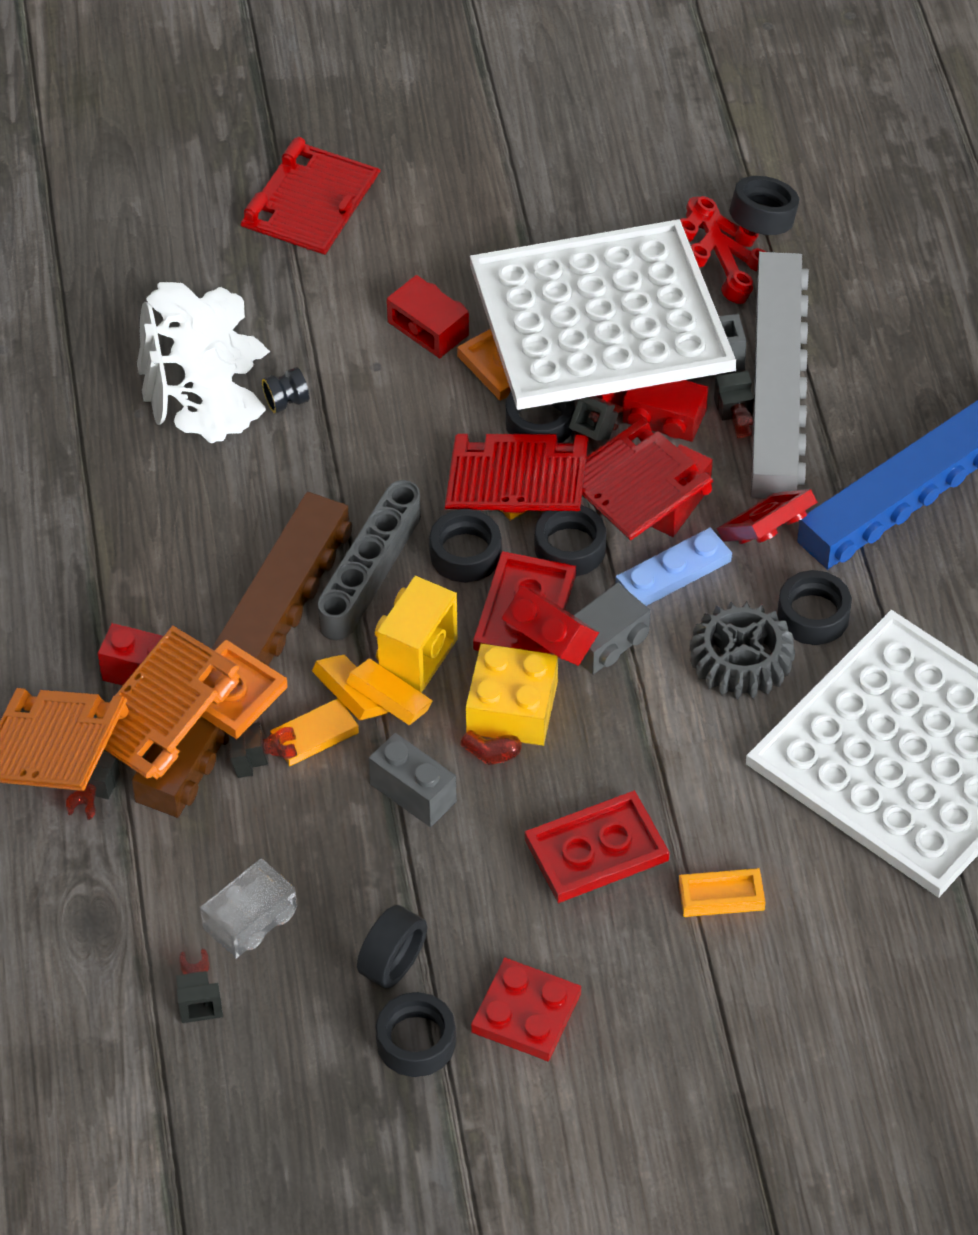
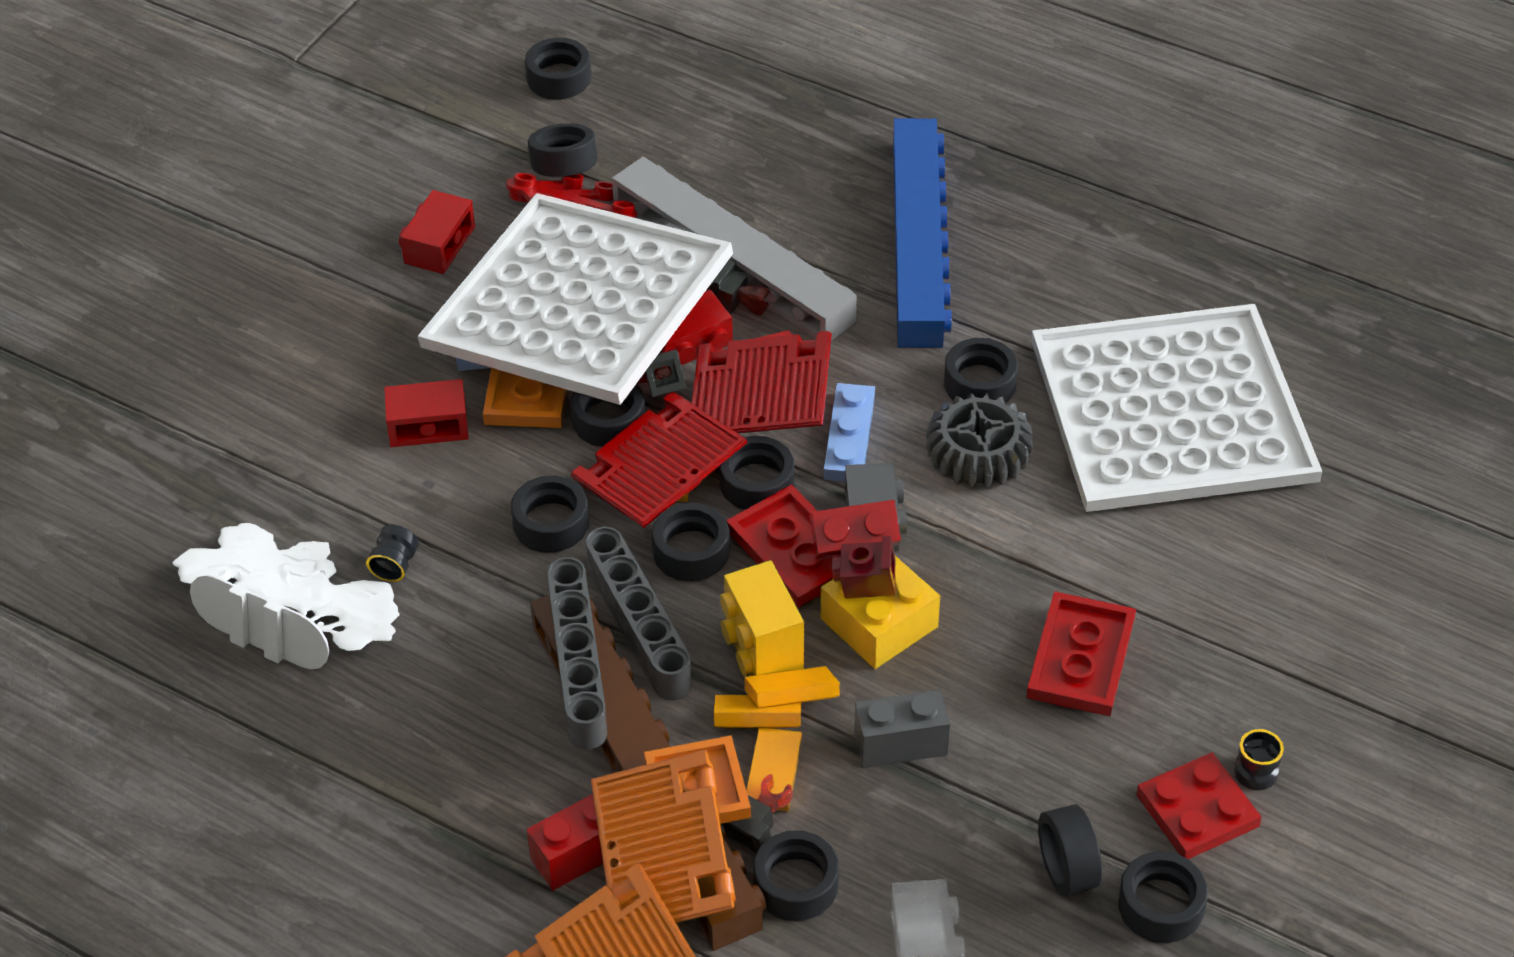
camera: 50 degrees left, 5 degrees down
(224, 778) = (803, 846): none -> black tyre
(277, 544) = (577, 653): none -> dark grey beam
(310, 198) = (198, 408): red window -> none
(410, 427) = (550, 536): none -> black tyre
(492, 750) = (916, 661): clear red arm -> none
(503, 648) = (866, 569): none -> dark red brick
(603, 1009) = (1258, 759): none -> black wheel
(605, 197) = (437, 231): none -> red brick
(721, 892) = (1195, 606): light orange tile -> none
(764, 517) = (872, 338): red plate -> none
(849, 160) = (562, 84): none -> black tyre

